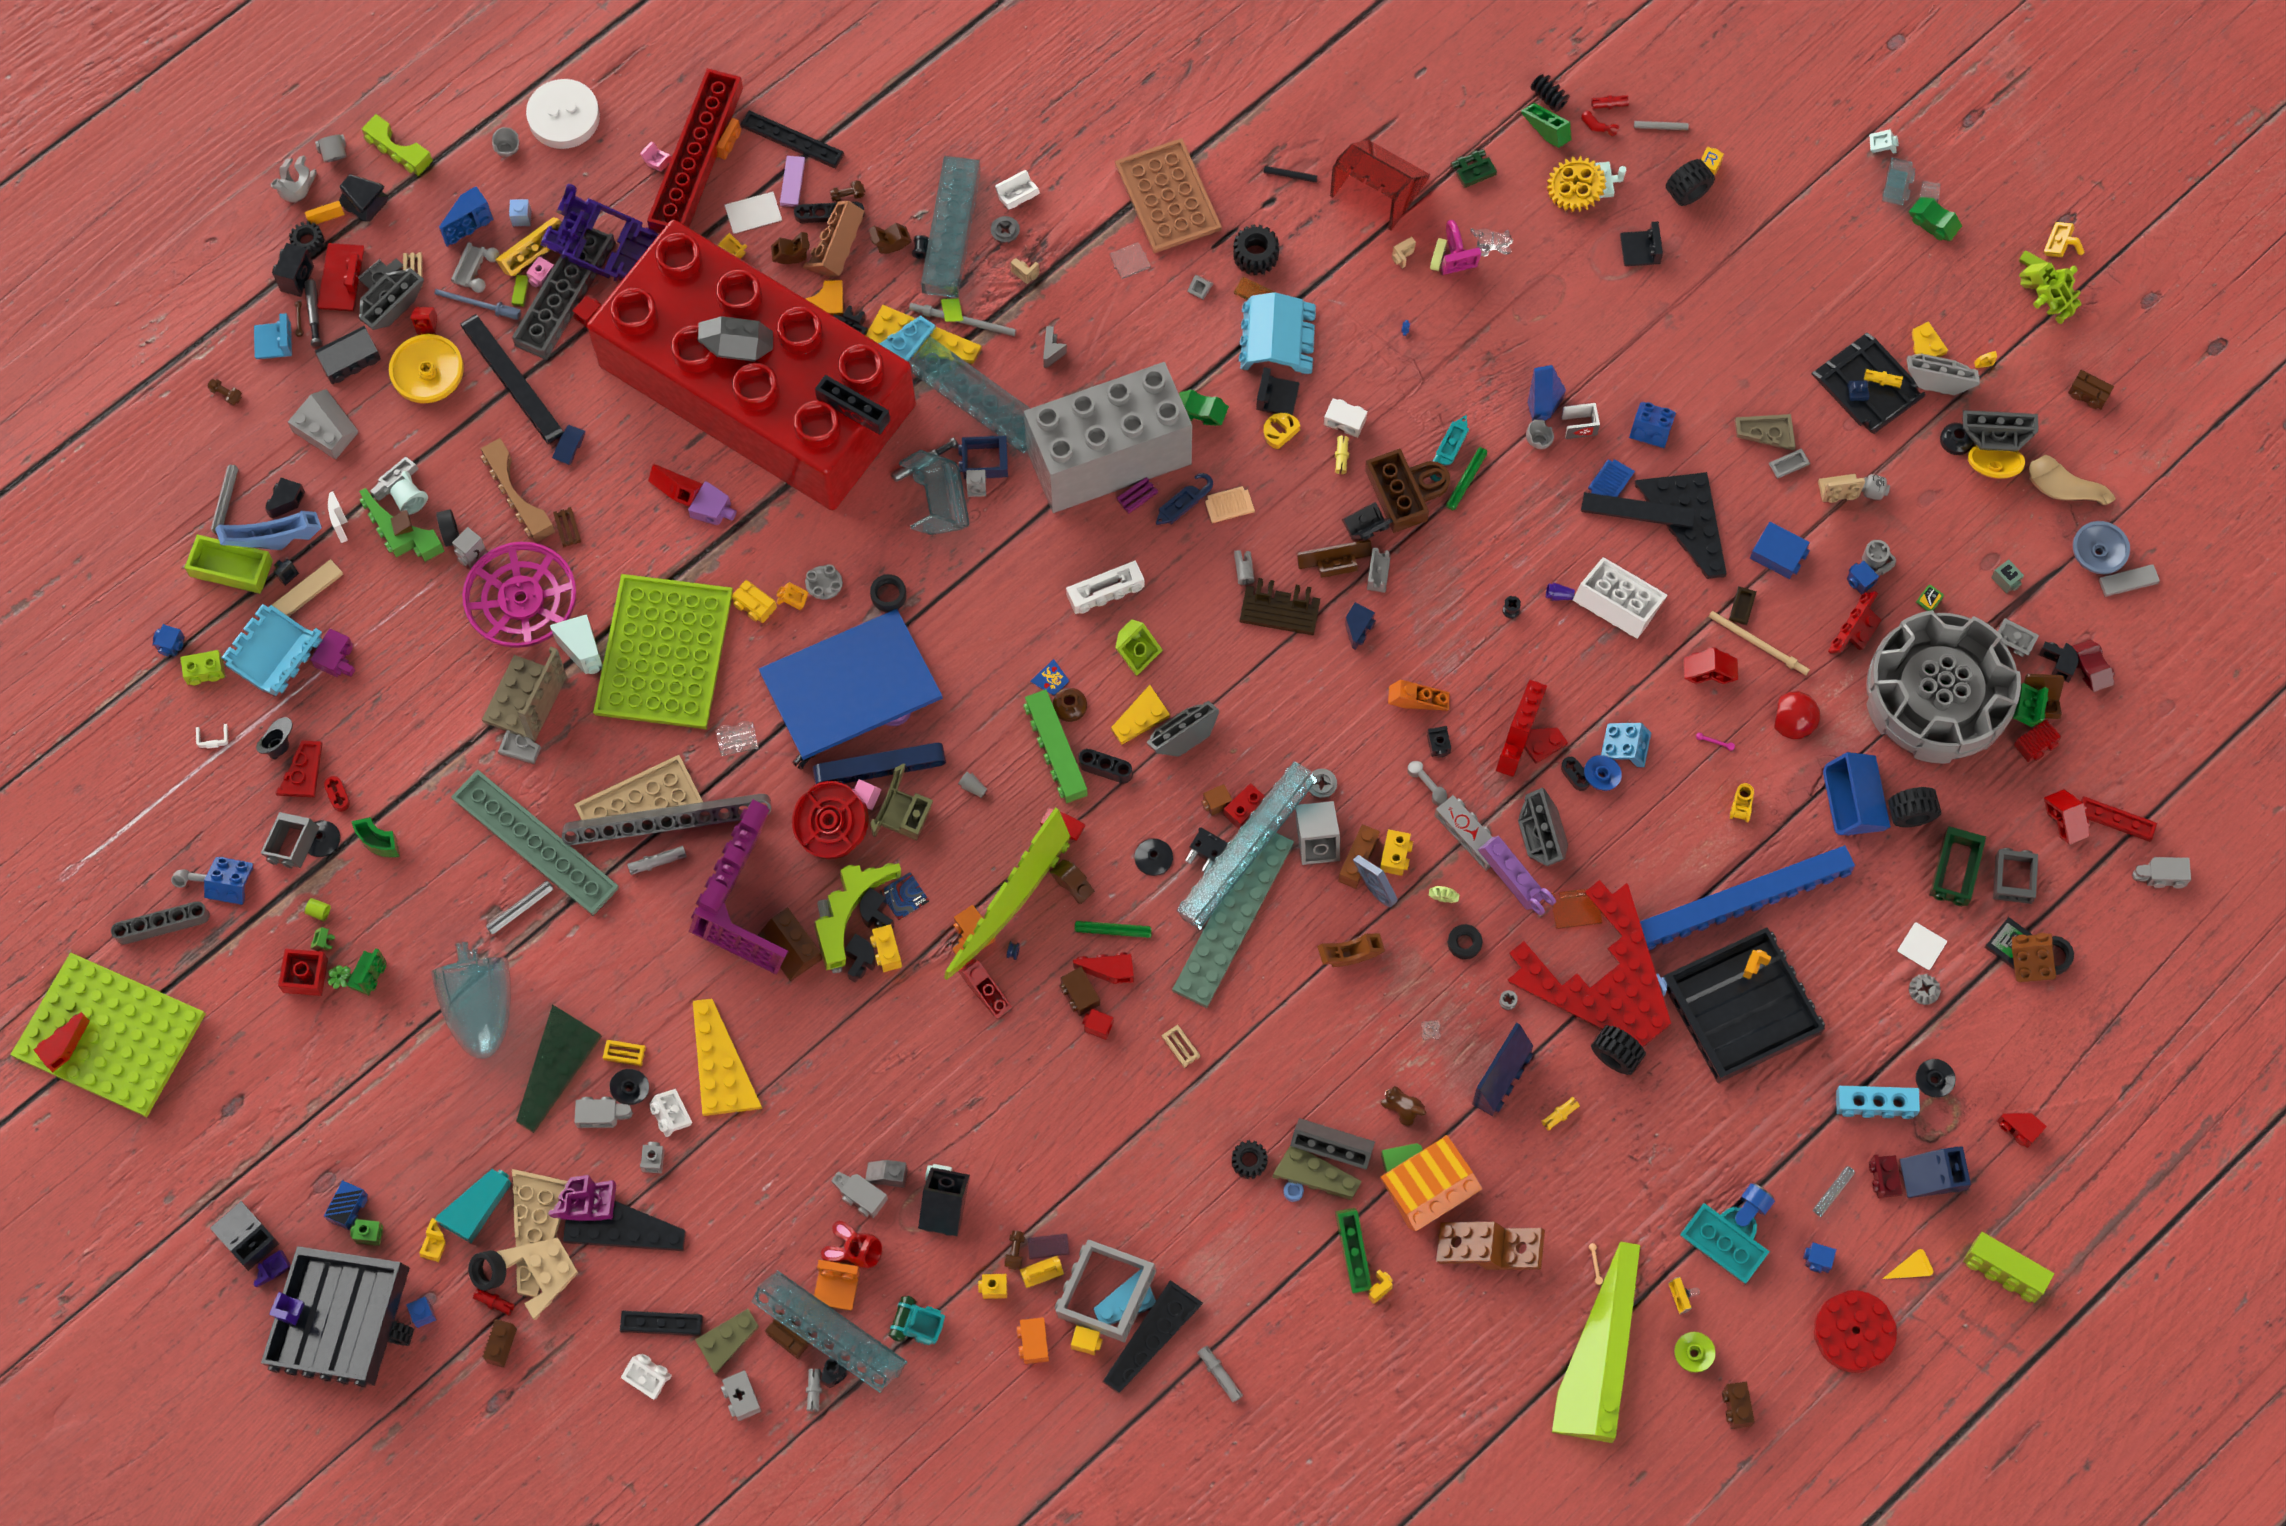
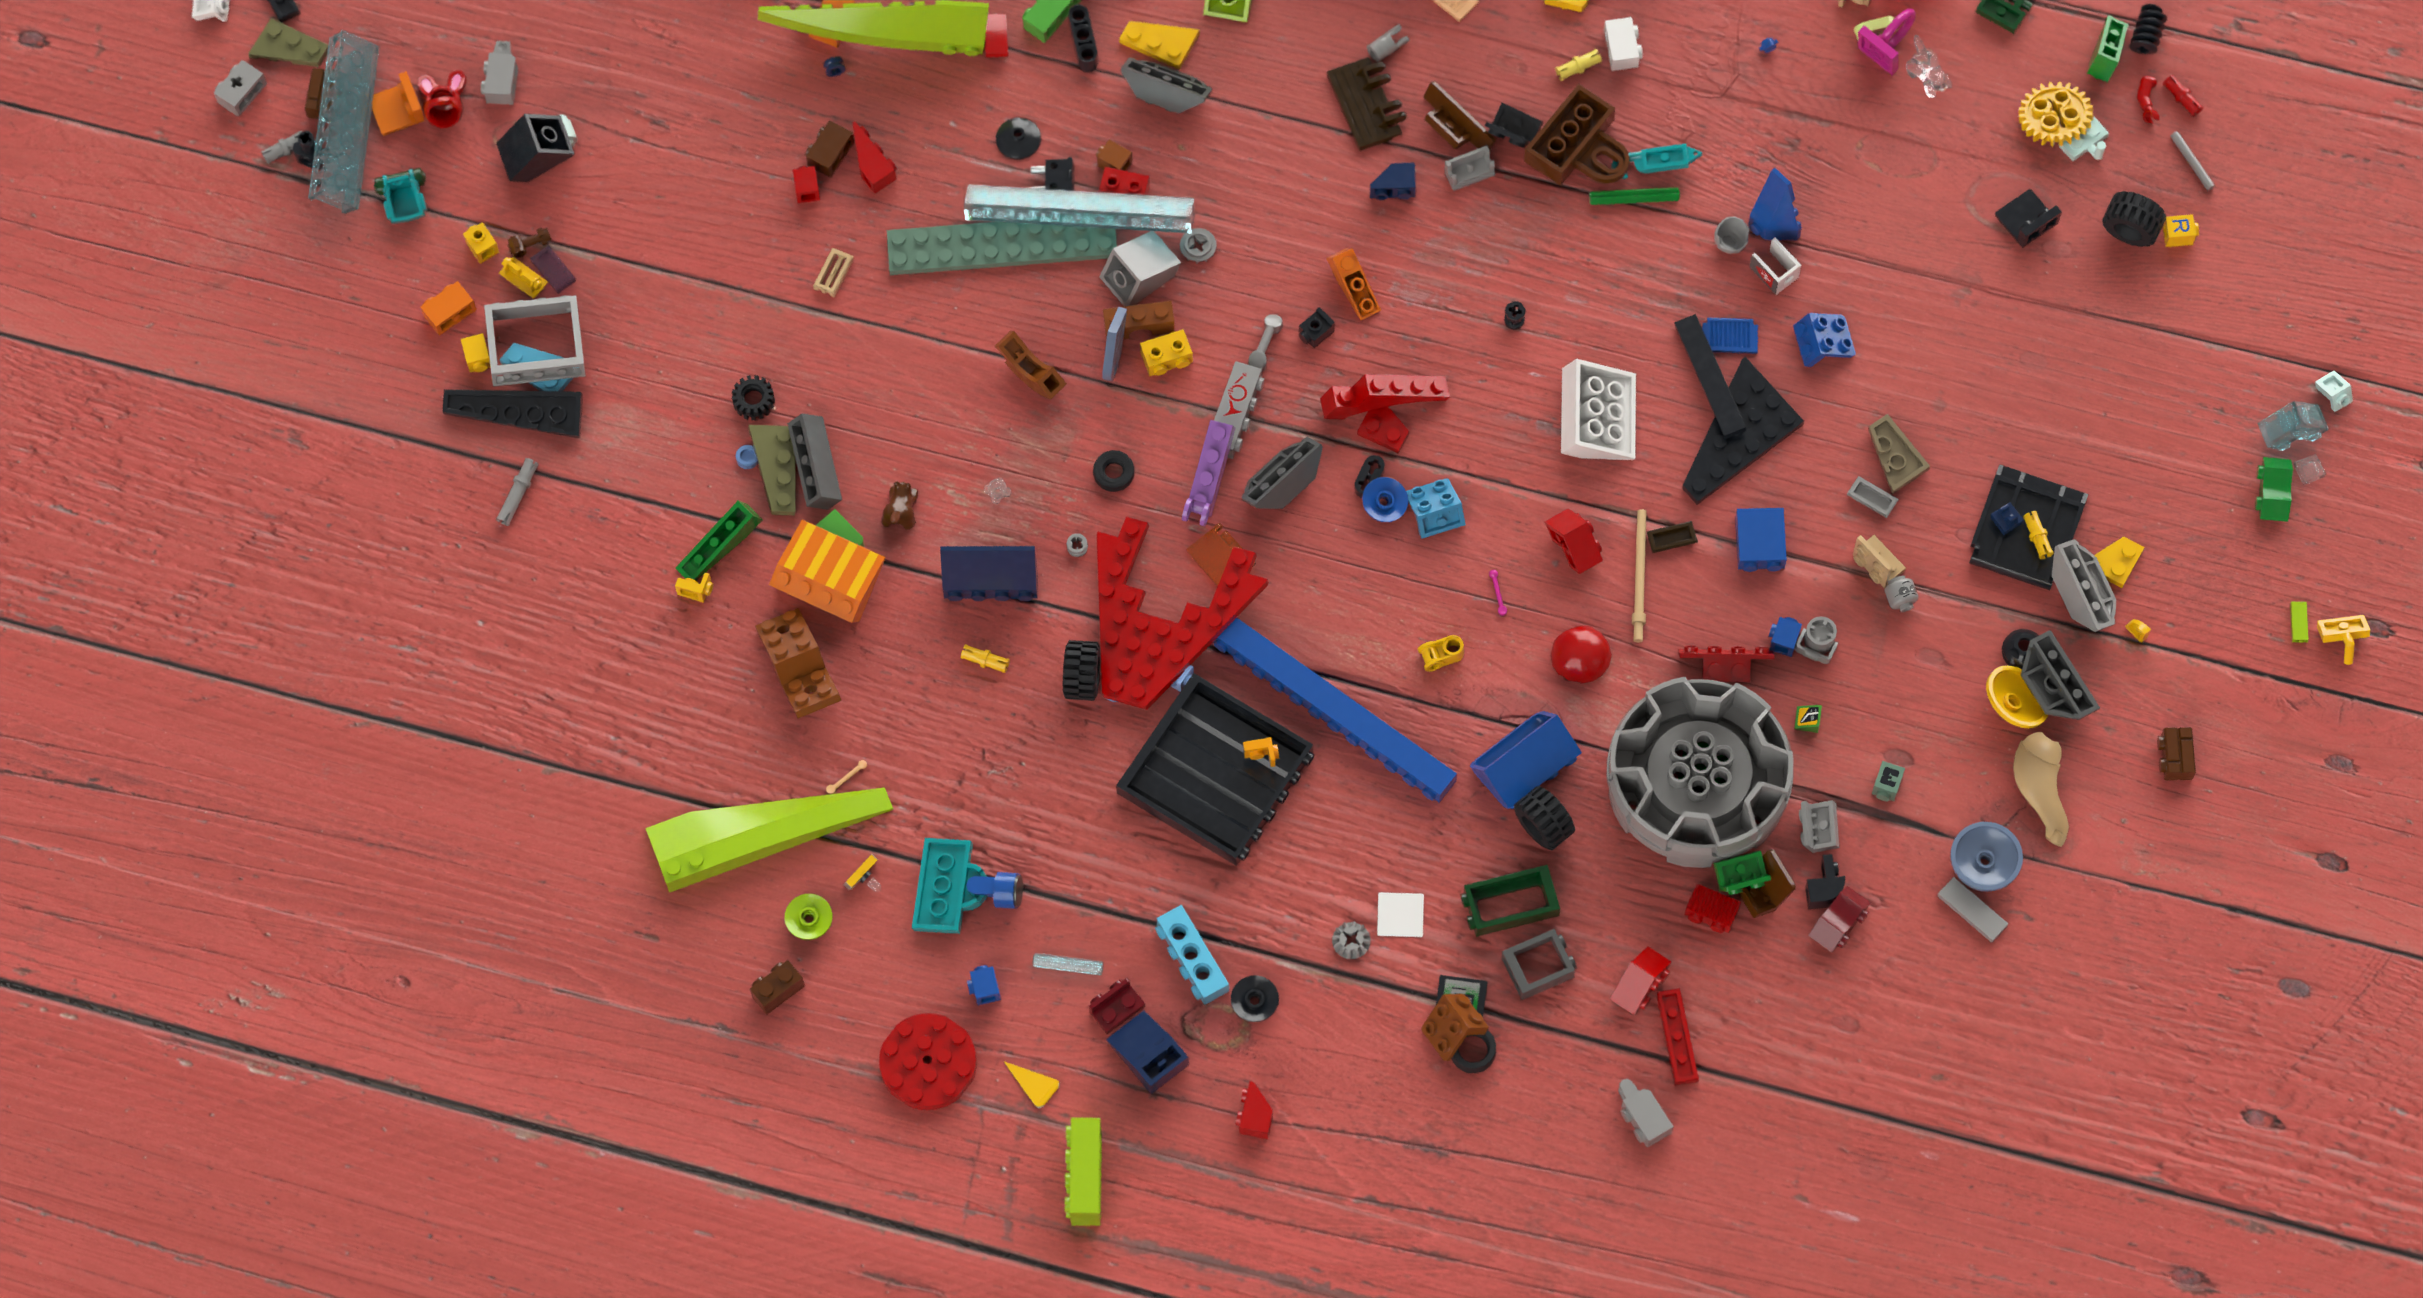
camera: 60 degrees right, 0 degrees up
(887, 1173) = (536, 88): flat silver slope -> none
(984, 988) = (778, 63): red slope -> none
(1072, 879) = (939, 76): reddish brown brick -> none
(1113, 929) = (916, 143): green axle -> none
(1444, 894) = (1148, 420): yellowish green gear -> none
(1558, 592) = (1562, 350): dark purple cone -> none
(2052, 287) = (2270, 651): lime piece -> none

